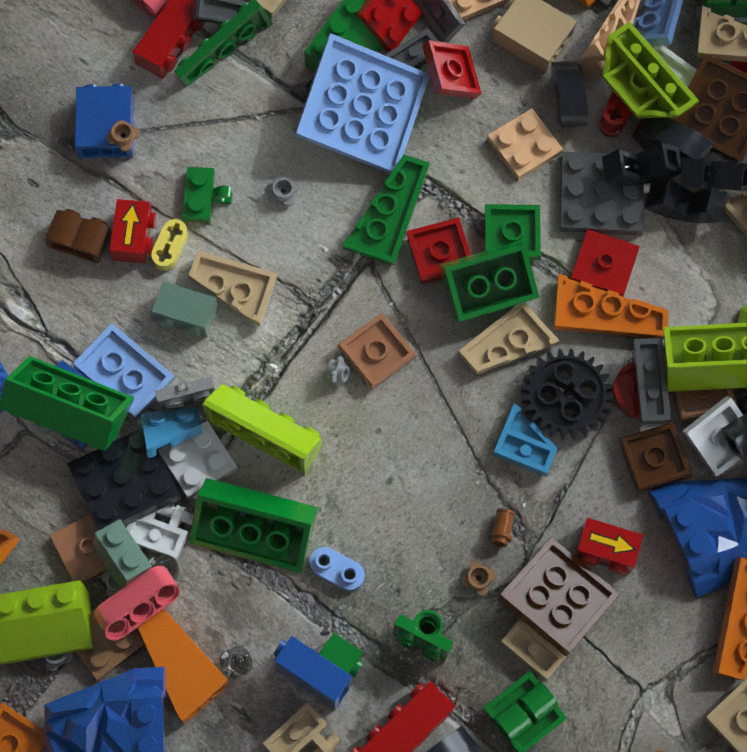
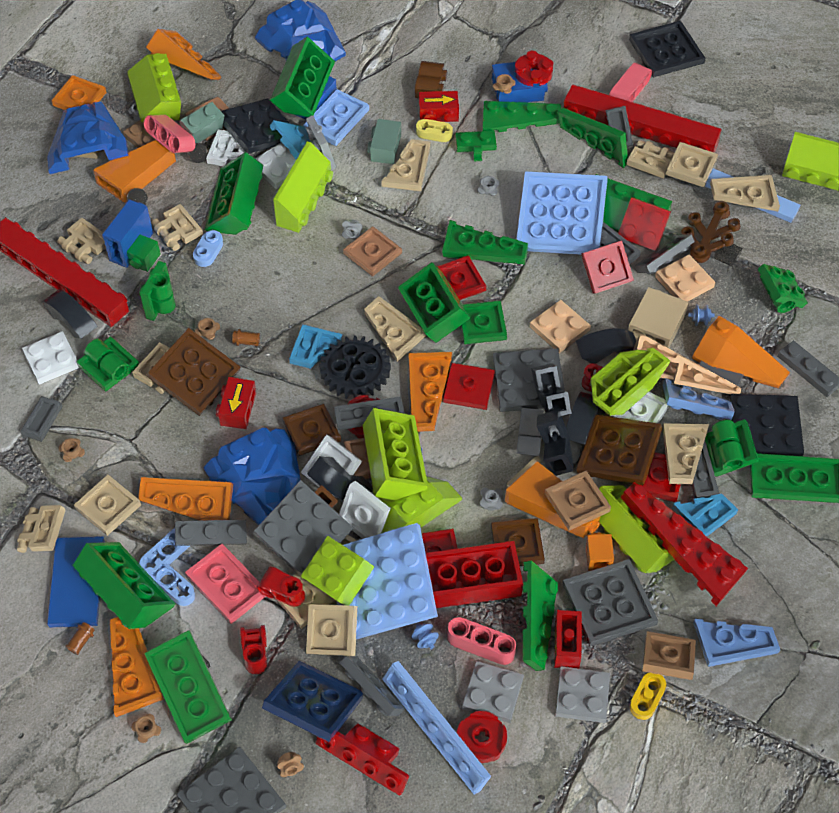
camera: 85 degrees right, 15 degrees down
(100, 78) = (537, 61): none -> red plate
(159, 146) = (506, 115): none -> green wing
(291, 601) = (182, 224): none -> tan plate

